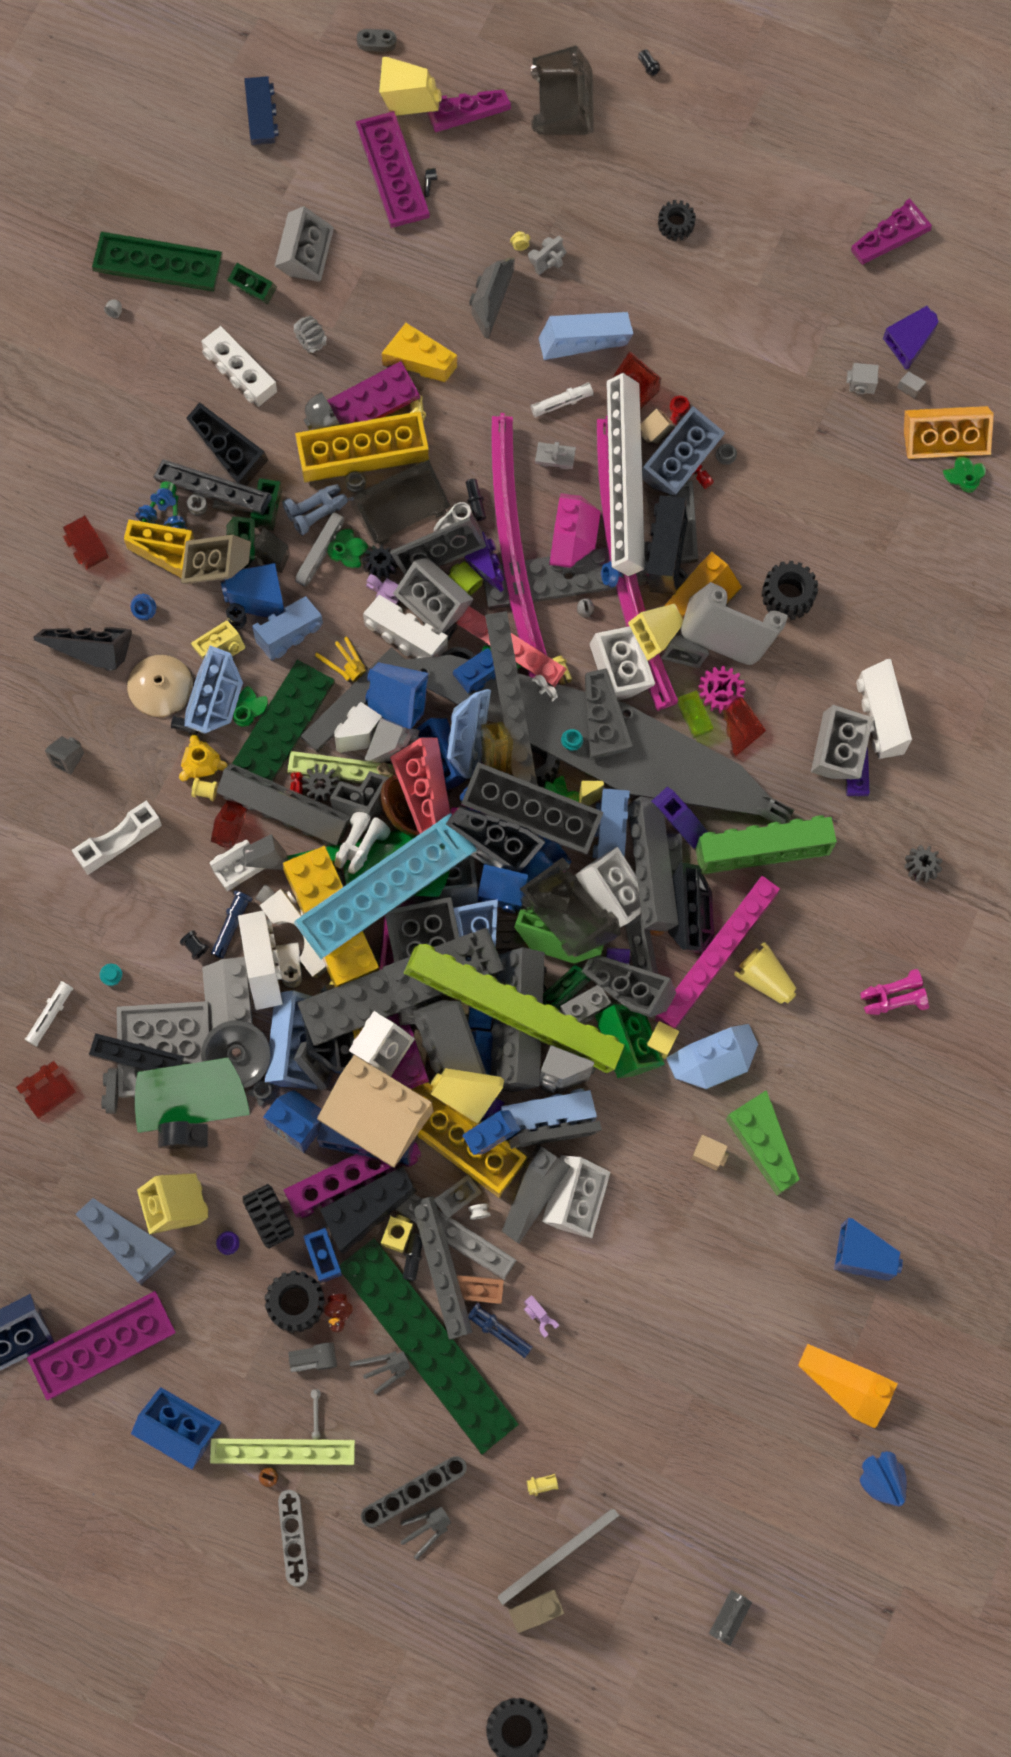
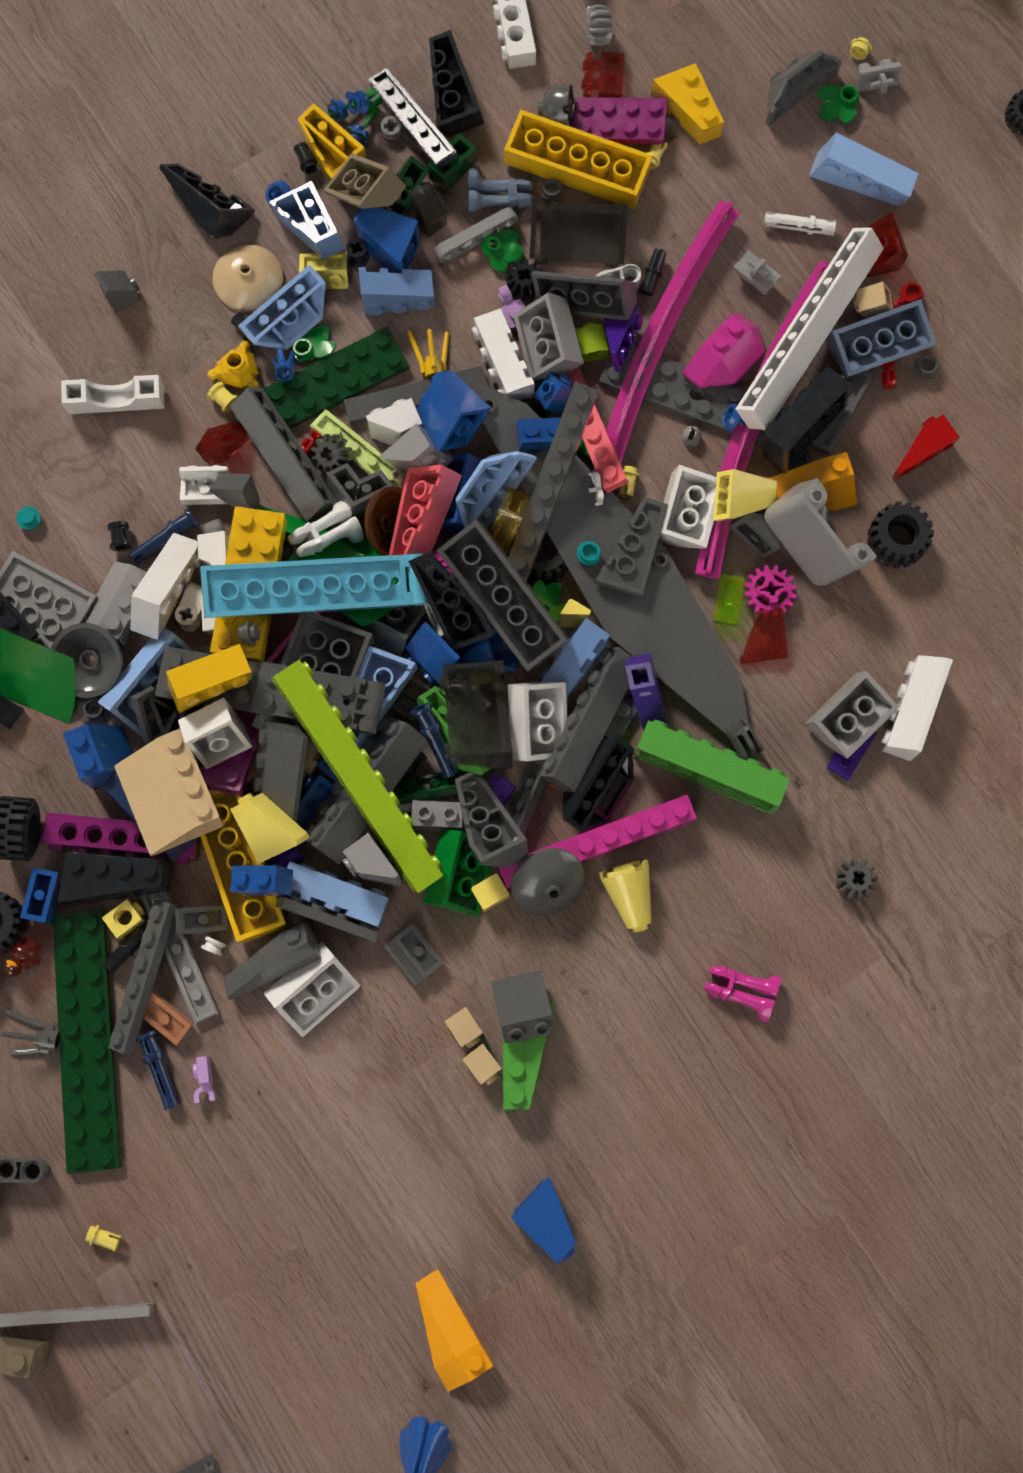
camera: 35 degrees right, 5 degrees up
(85, 542) = (265, 104): clear red brick -> none
(148, 568) = (307, 162): none -> black pin
(183, 612) = (308, 219): none -> medium blue wedge
(240, 738) = (284, 369): none -> blue piece
(342, 366) = (611, 75): none -> clear red plate
(352, 1003) = (208, 677): none -> yellow wedge
(361, 951) = (248, 633): none -> dark grey plate
(465, 633) = (554, 392): none -> blue brick
(530, 294) = (836, 105): none -> green plate
(541, 943) = (431, 730): none -> dark blue pin
(635, 1122) = (414, 955): none -> dark grey plate
(701, 1003) = (543, 873): none -> dark grey dish
(715, 1057) = (531, 941): light blue wedge -> none
(741, 1171) = (482, 1065): none -> tan brick
(745, 1106) = (523, 1007): none -> dark grey panel
(764, 511) = (931, 441): none -> red slope

